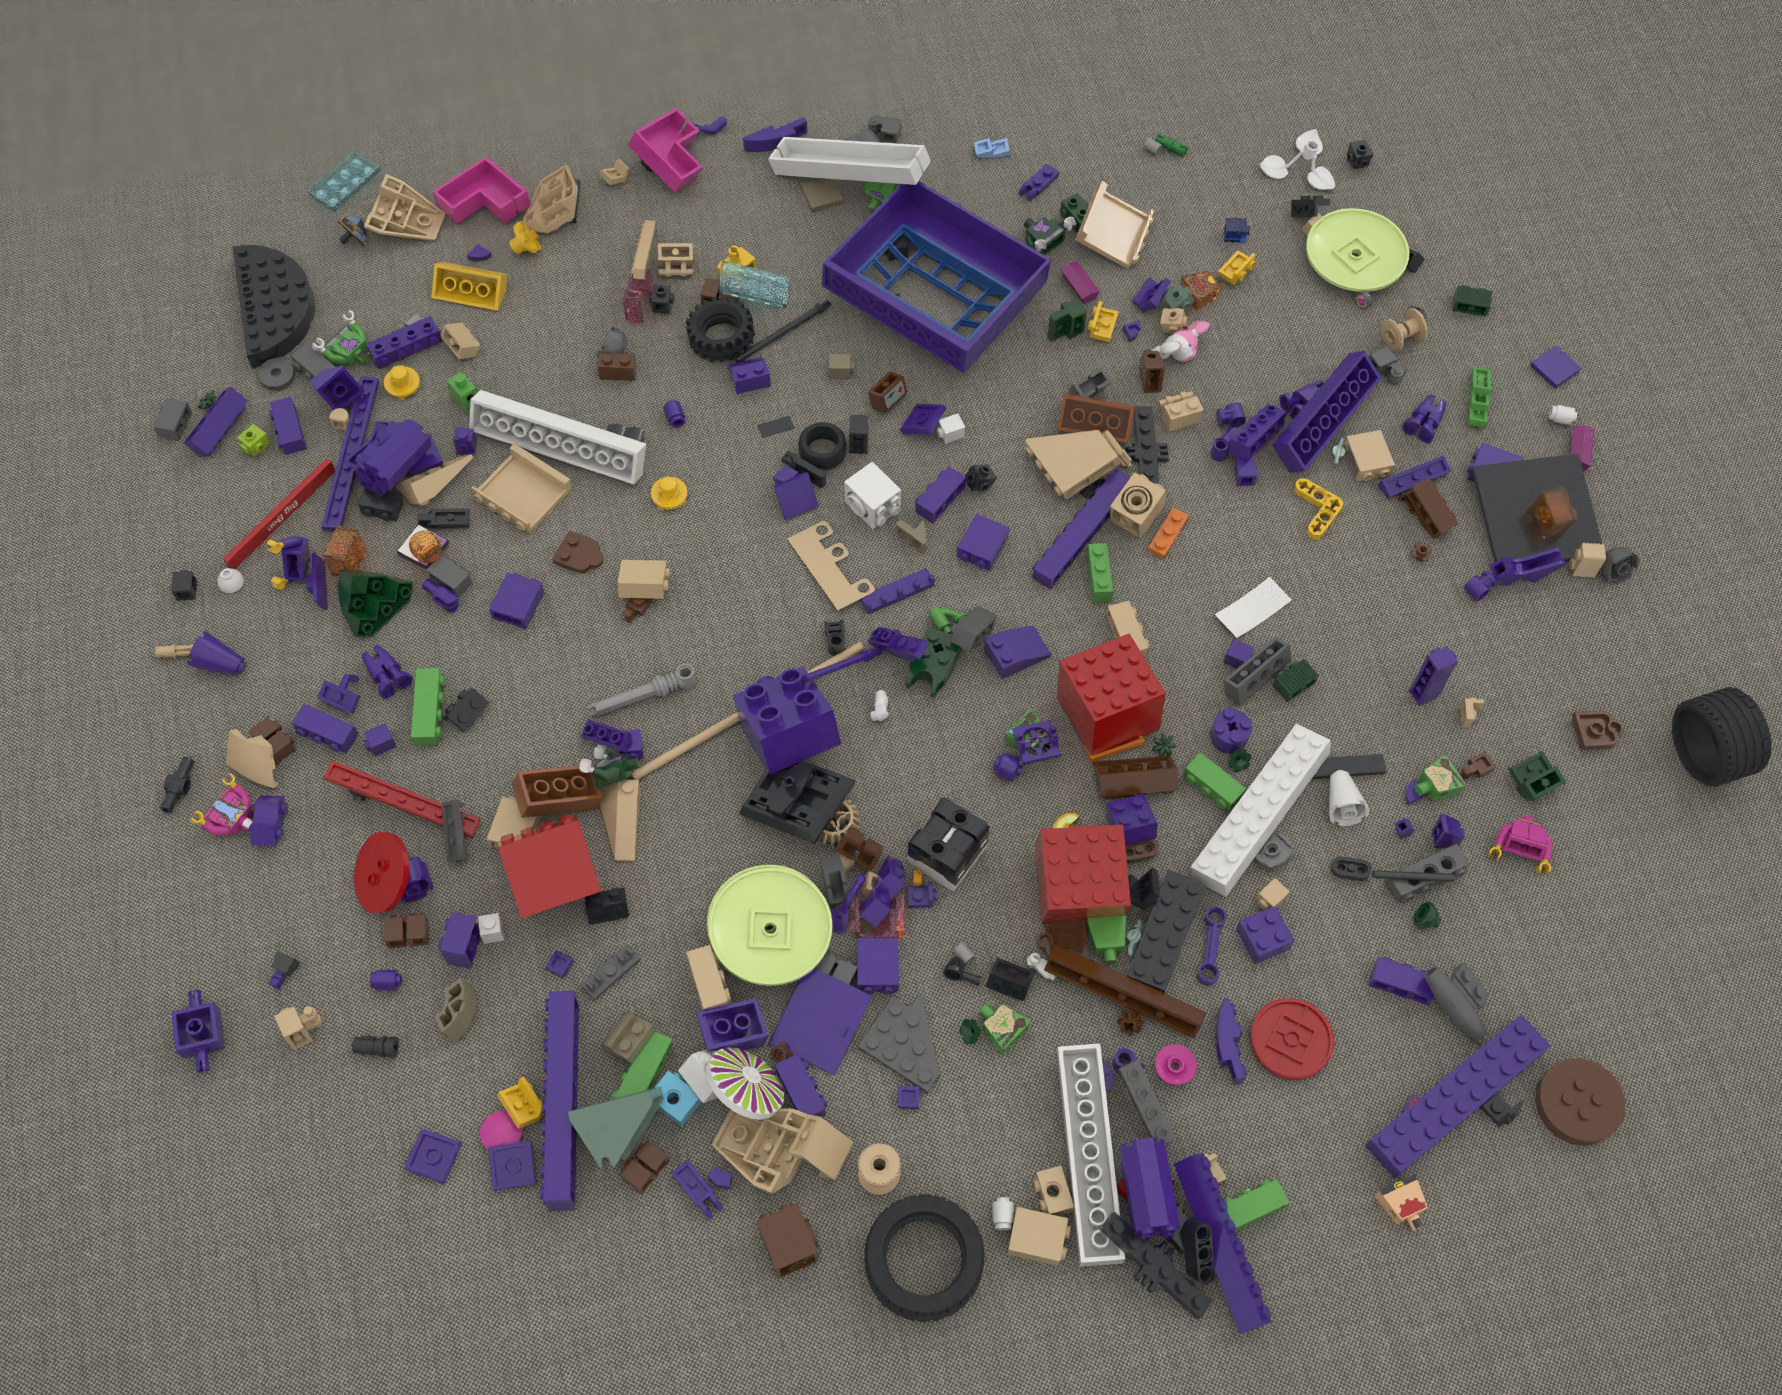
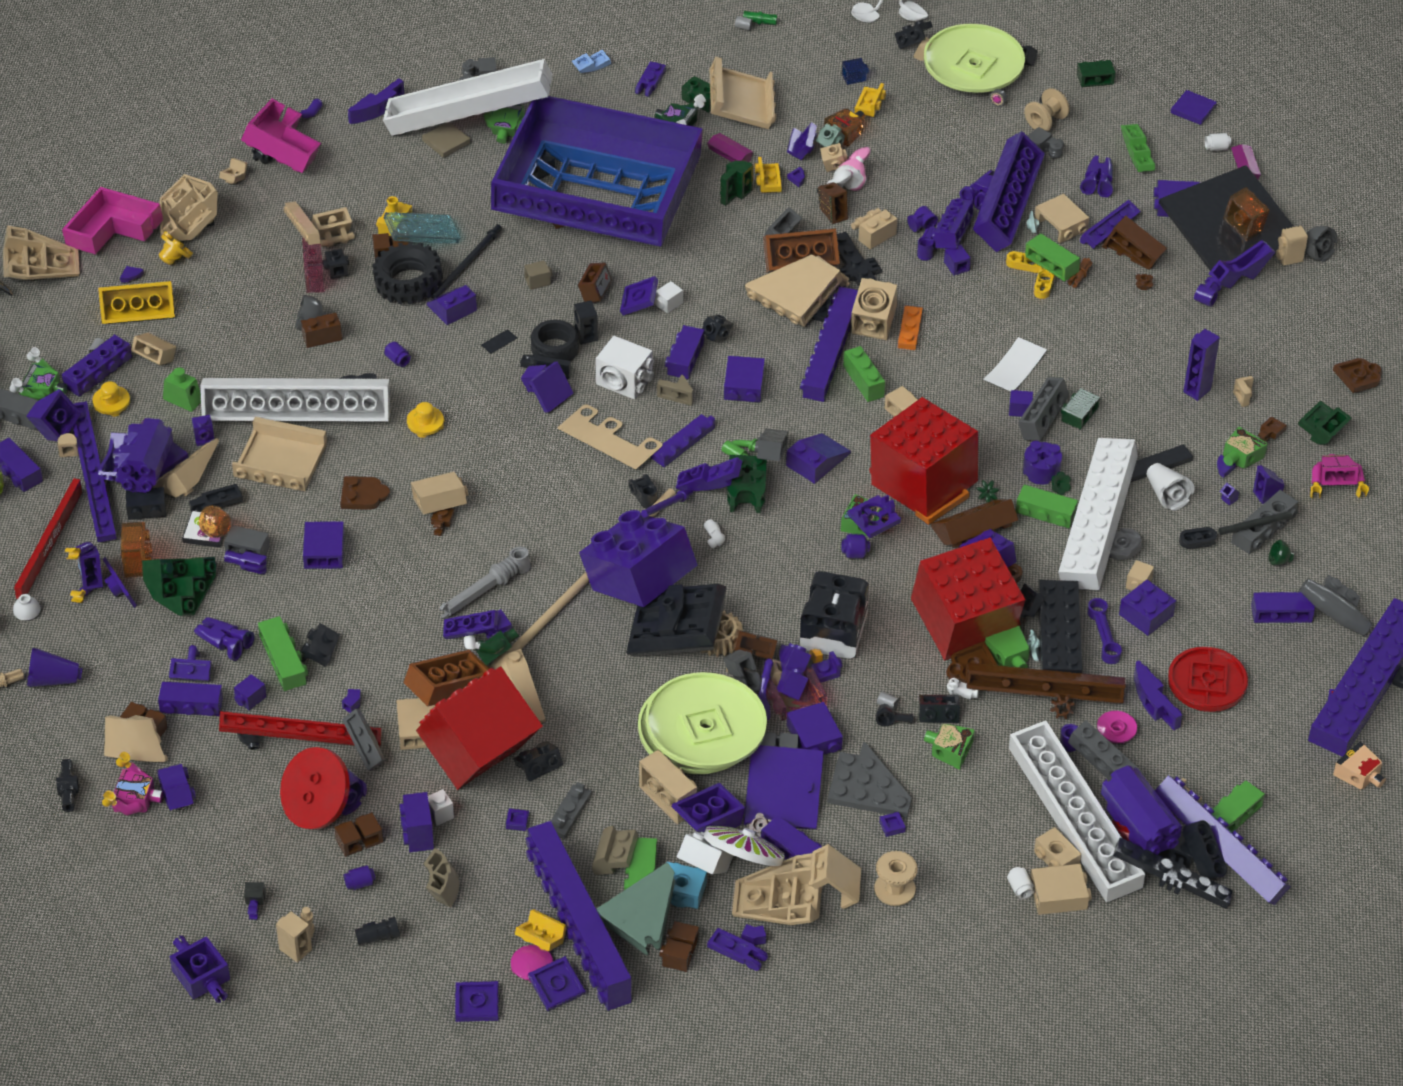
camera: 20 degrees left, 15 degrees down
(468, 779) = (352, 700): none -> dark purple piece
(788, 1239) = (841, 956): reddish brown brick -> none
(970, 1031) = (922, 756): dark green plant -> none
(972, 1252) = (963, 968): black tyre -> none
(1338, 499) = (1052, 257): none -> bright green brick
(1361, 522) = (1085, 264): none -> dark orange axle

